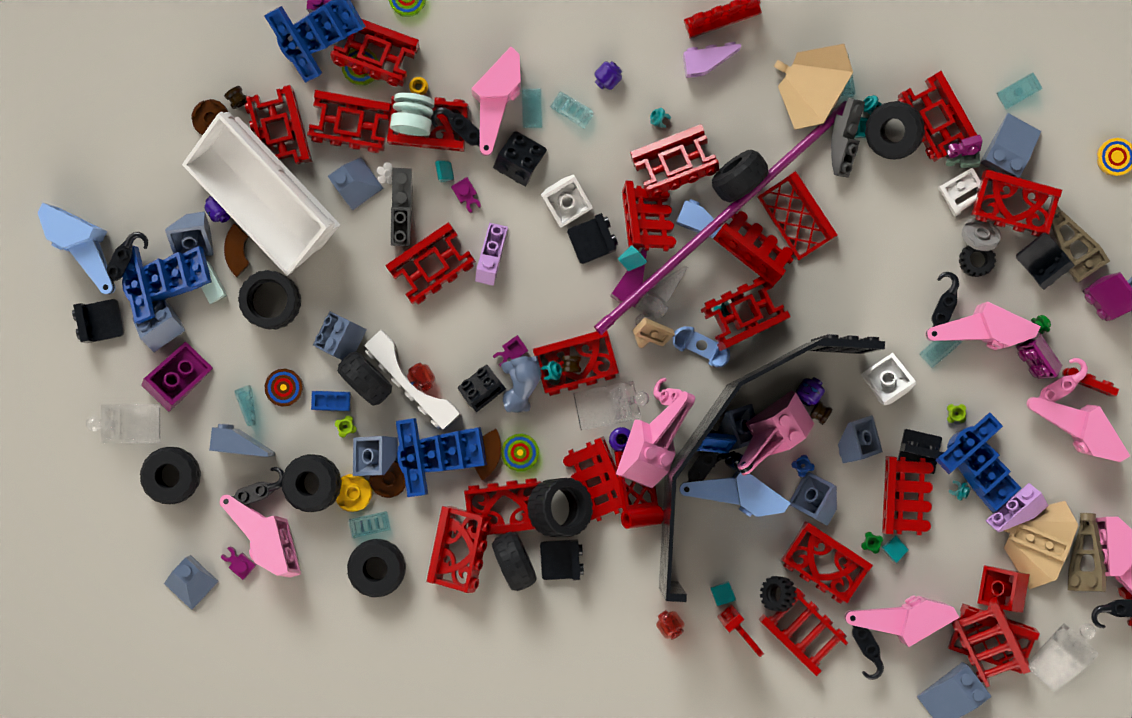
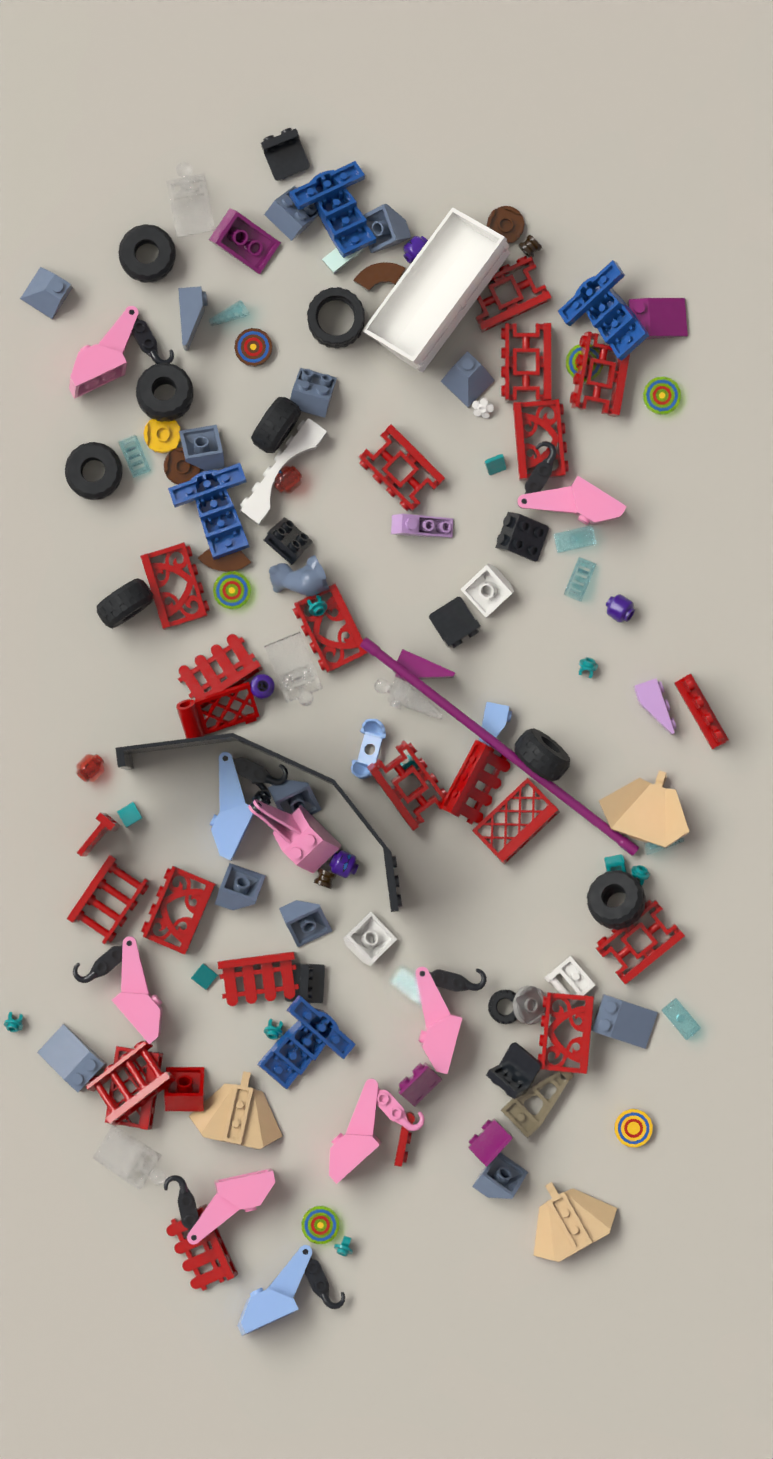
camera: 80 degrees right, 0 degrees up
(83, 242) = (362, 123): light blue slope -> none
(240, 565) = (72, 337): magenta plate -> none
(331, 401) = (248, 395): blue plate -> none
(350, 427) = (226, 409): lime plate -> none
(401, 206) = (451, 429): dark grey slope -> none
(412, 114) = (542, 422): light aqua wheel -> none
(418, 80) = (579, 419): yellow plate -> none
(441, 550) = (136, 562): red fence -> none
(465, 192) = (478, 489): magenta plate -> none
(513, 349) = (331, 565): magenta plate -> none
(561, 559) = (134, 650): black bracket -> none
(571, 363) = (327, 623): dark brown wheel -> none
(579, 507) = (190, 657): black tyre -> none
(632, 259) = (438, 662): teal slope -> none
(643, 225) = (475, 669): red fence -> none
(651, 445) = (261, 715): bright pink slope -> none
(653, 332) = (372, 697): tan plate -> none
(669, 148) = (557, 680): red fence -> none
(718, 443) = (275, 777): blue plate -> none
(769, 591) = (139, 875): black tyre -> none
(803, 470) = (275, 870): blue plate -> none
(843, 143) = (596, 852): dark grey slope -> none
(873, 547) = (208, 957): green plate -> none
(961, 413) = (350, 1008): lime plate -> none
(966, 161) = (604, 978): sand green plate -> none
(967, 146) = (613, 975): magenta plate -> none
(1019, 509) = (266, 1090): lavender slope -> none
(1042, 321) = (452, 1081): green plate -> none
(1086, 580) = (208, 1171): dark tan plate -> none

